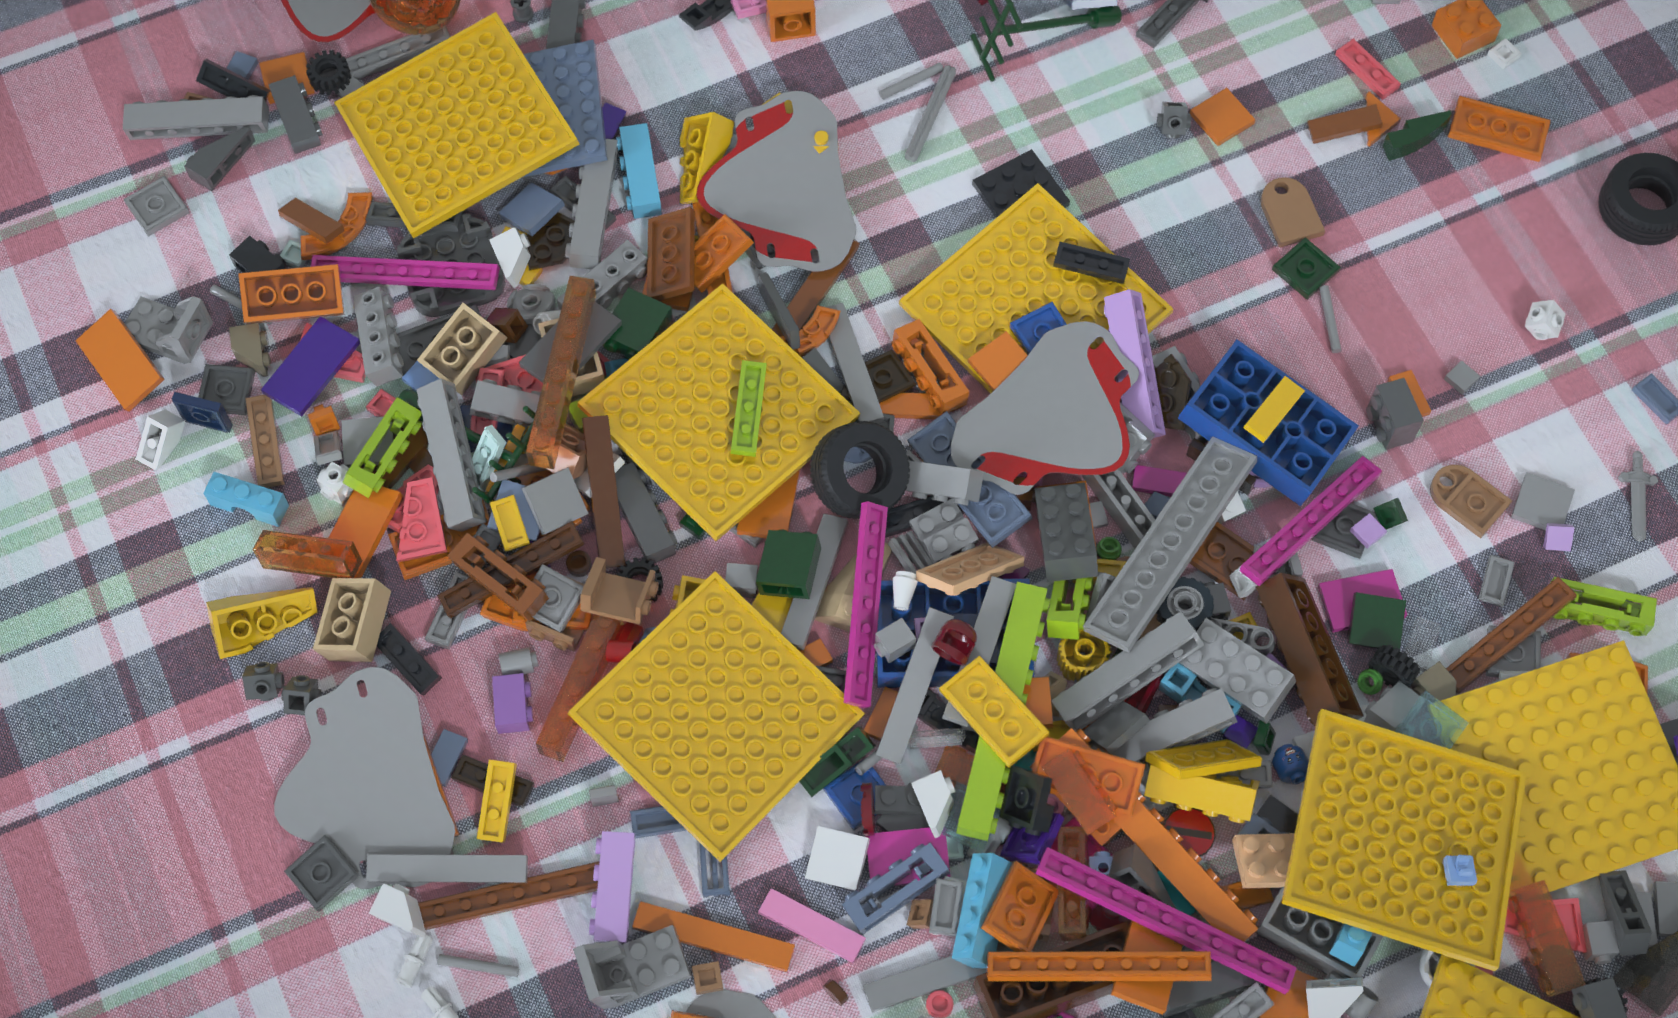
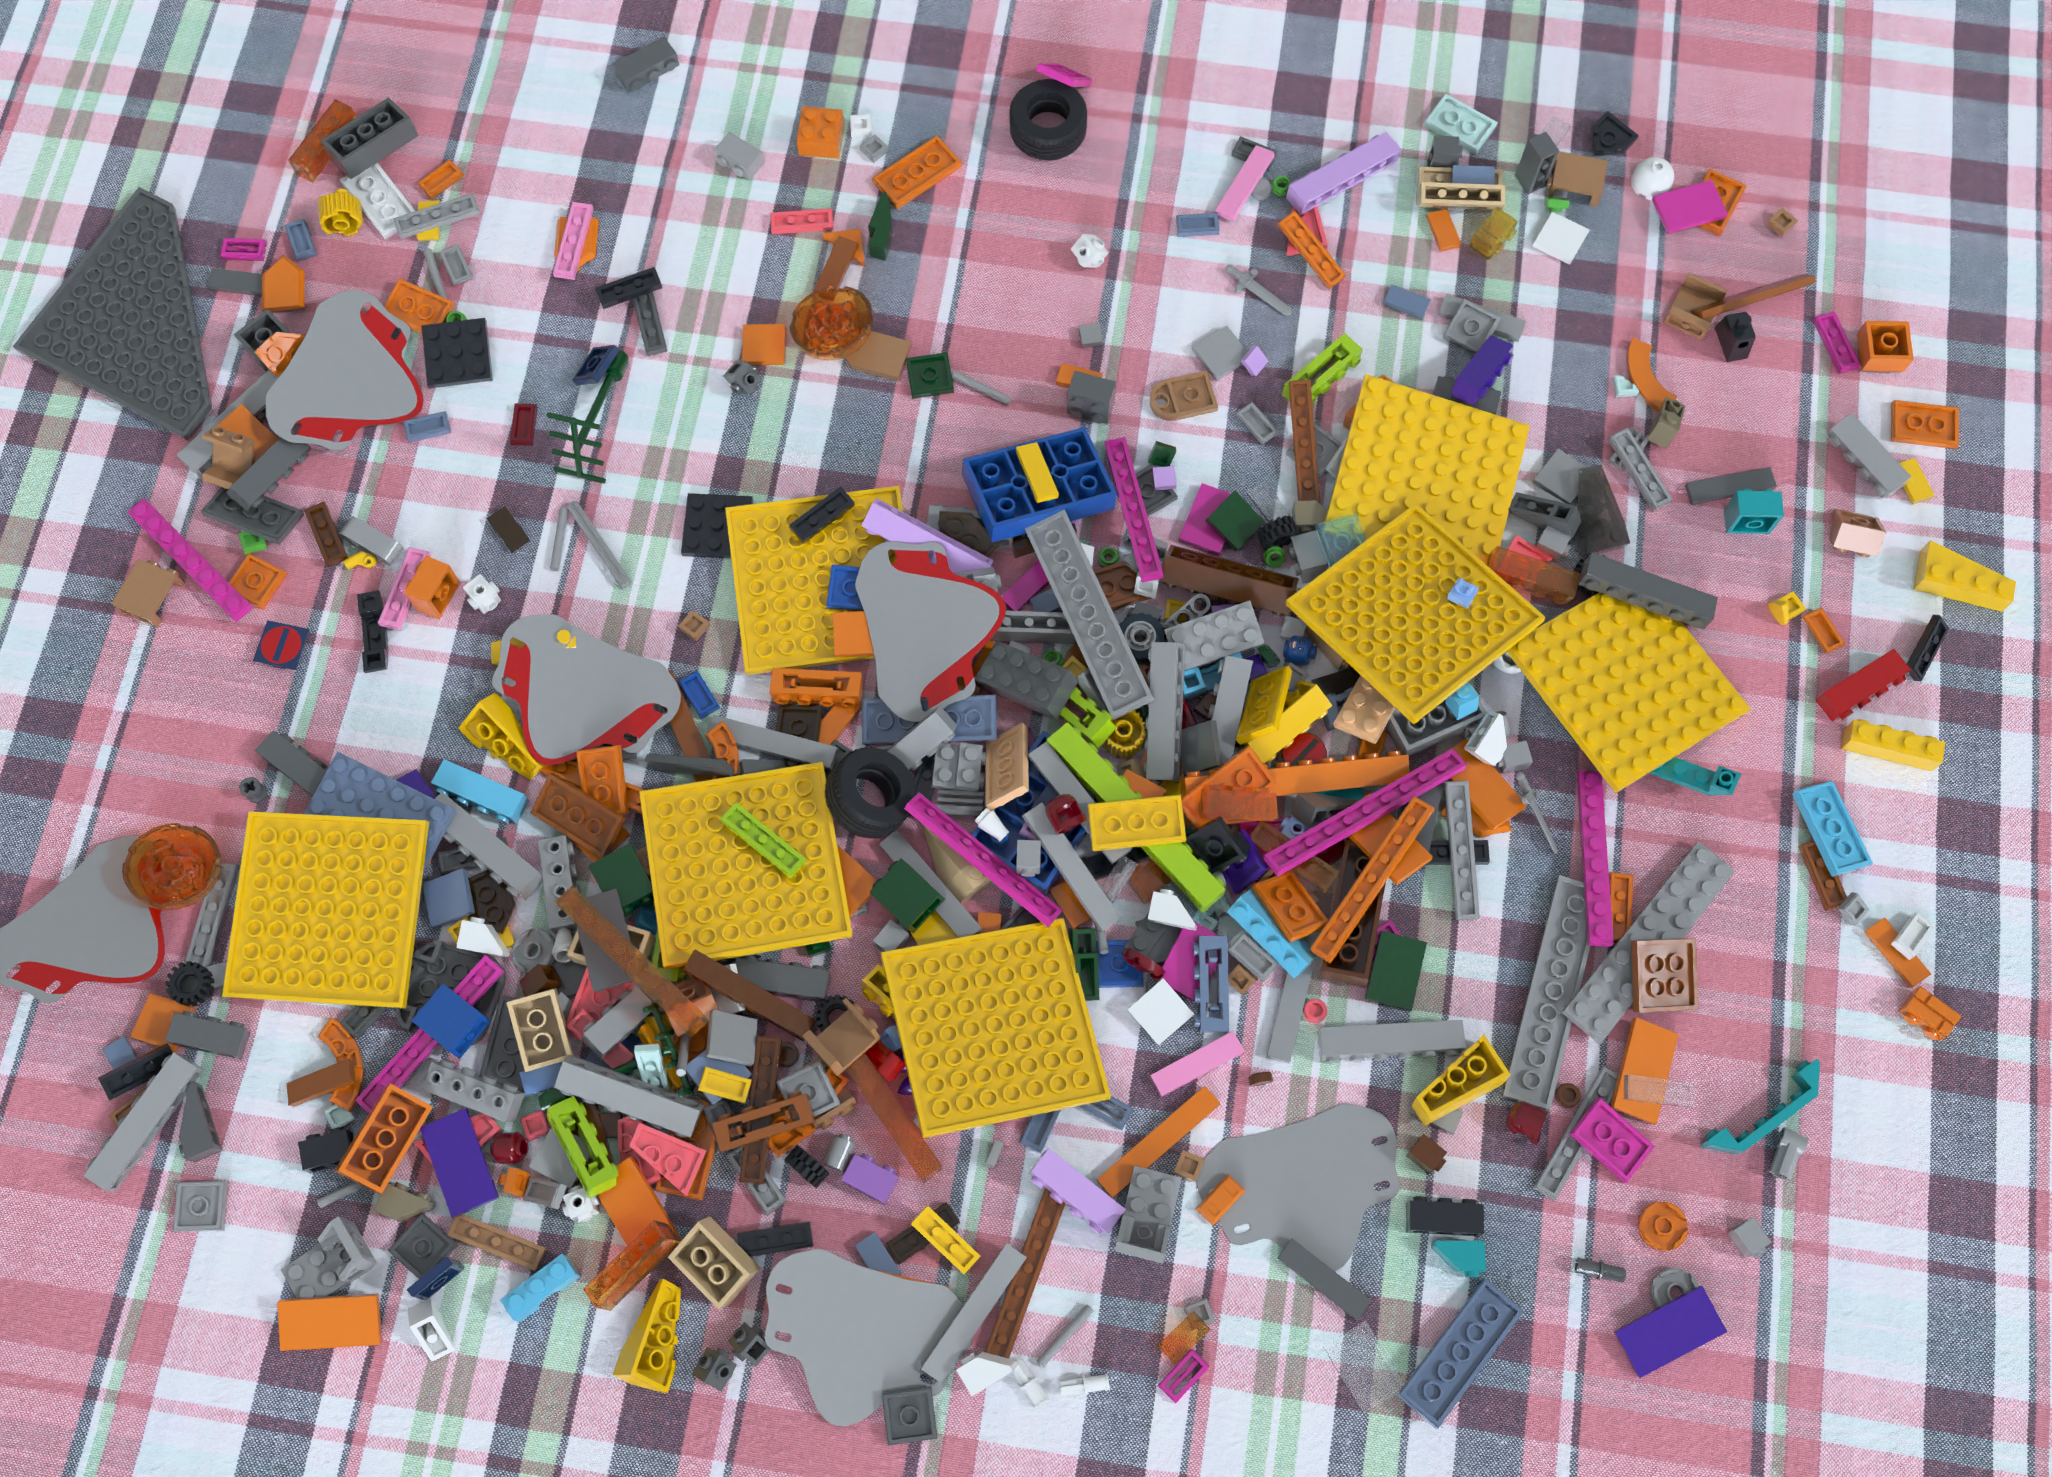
camera: 55 degrees left, 5 degrees up
(349, 396) = (509, 1148): none -> dark red head
(423, 278) = (451, 1021): none -> blue panel
(486, 640) = (806, 1166): none -> black tyre
(814, 55) = (482, 594): none -> white brick
(854, 280) = (699, 694): none -> blue tile
(890, 37) = (508, 529): none -> dark brown tile
(913, 234) = (694, 625): none -> medium nougat plate
(1253, 528) = (1108, 551): none -> bright green plate
(1284, 153) = (845, 320): none -> clear orange brick
(1491, 79) = (874, 148): none -> light grey tile

